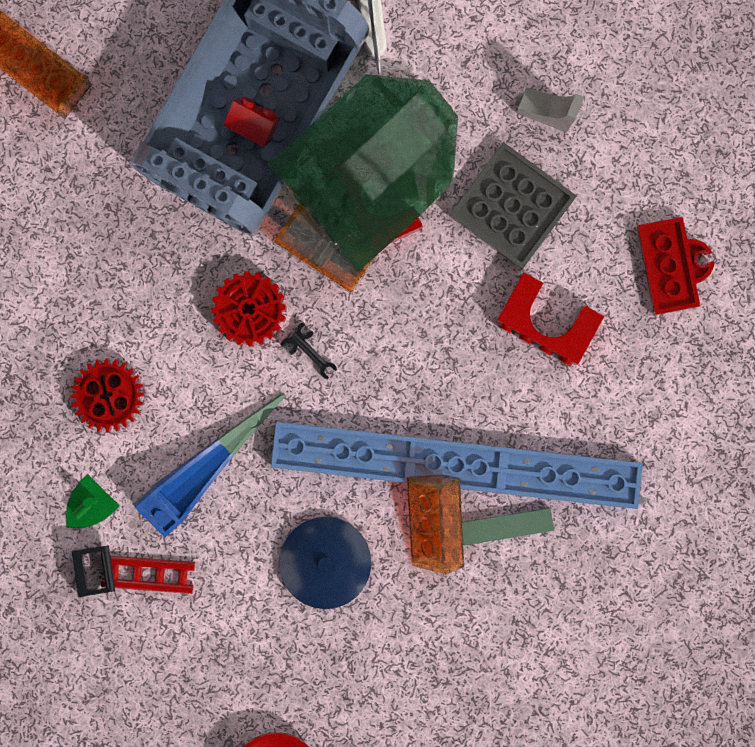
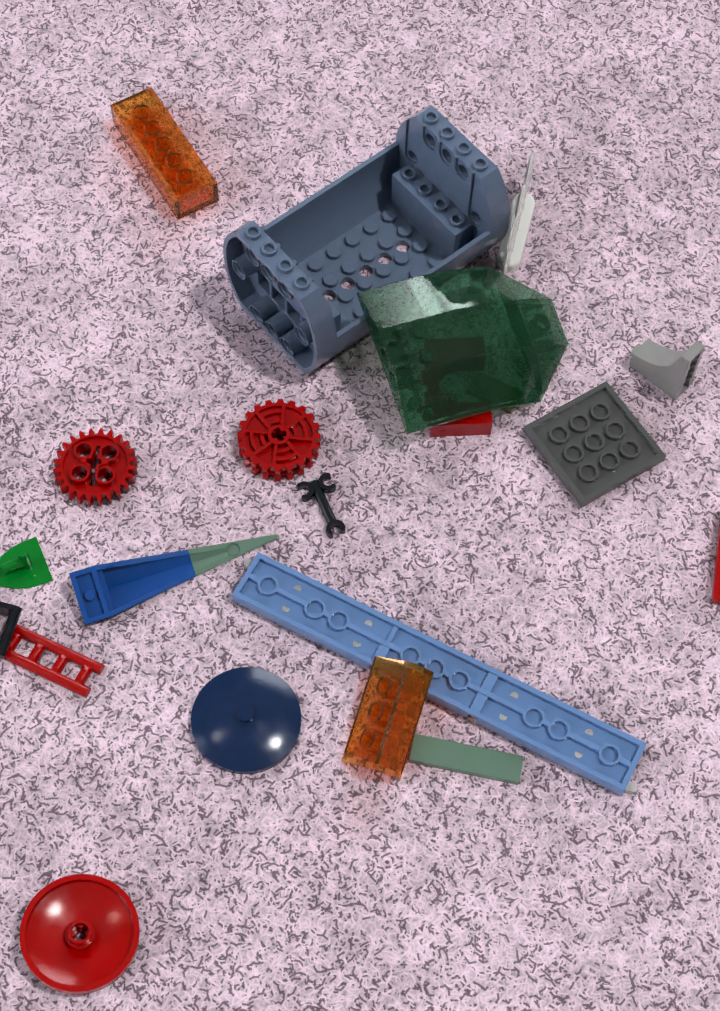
camera: 20 degrees right, 25 degrees down
(252, 121) = (357, 270): red brick -> none
(312, 247) = (371, 405): clear brick -> none
(516, 318) = (603, 595): red arch -> none

